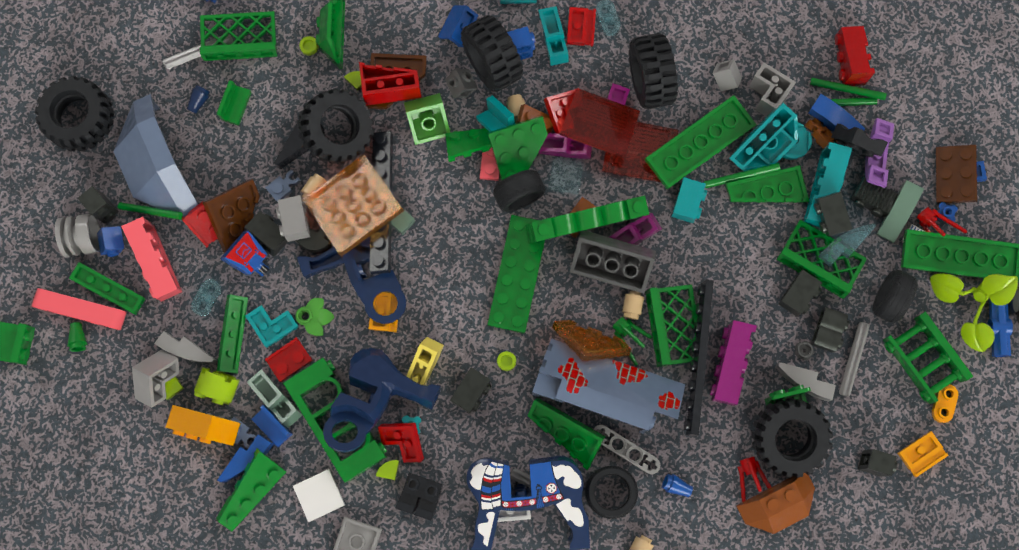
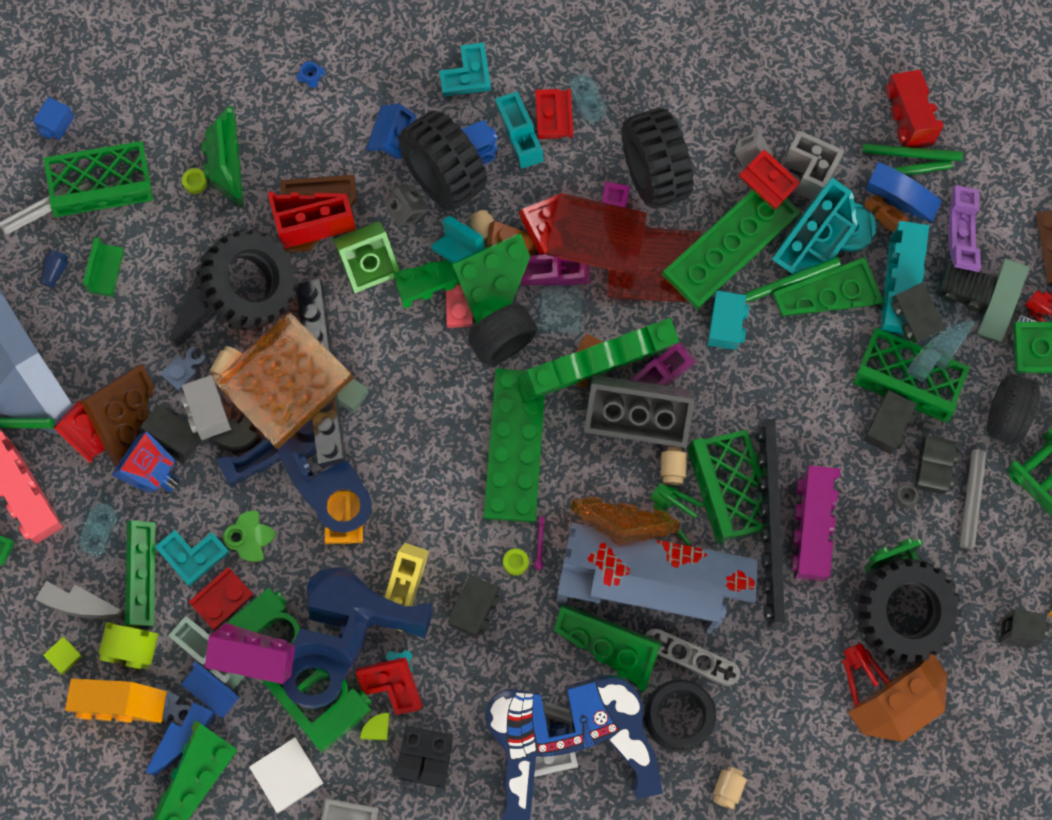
camera: 15 degrees left, 5 degrees down
(151, 376) = (37, 645): light grey brick -> none
(300, 406) = (249, 654): none -> magenta wedge
(354, 79) = (262, 217): lime tile -> none
(523, 365) = (538, 564): none -> magenta hinge
(675, 485) = (763, 695): blue cone -> none
(735, 97) = (769, 179): none -> red plate
(808, 378) = (899, 529): light grey slope -> none
(858, 141) = (937, 215): black brick -> none

